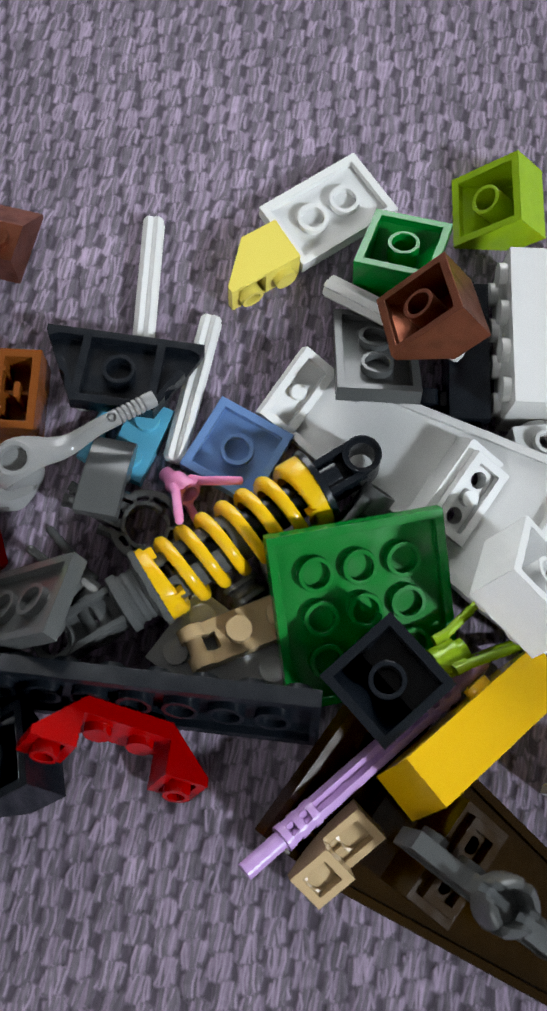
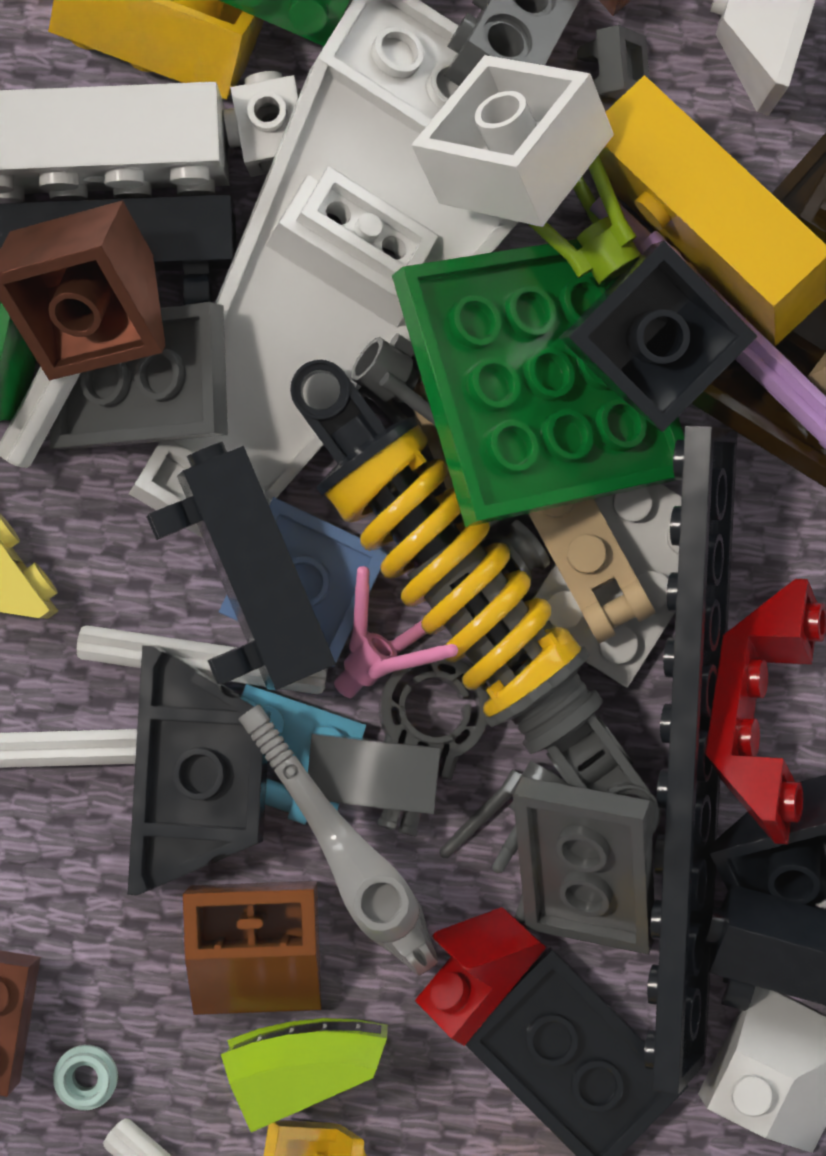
camera: 90 degrees left, 15 degrees up
(247, 409) = (252, 566): none -> black brick

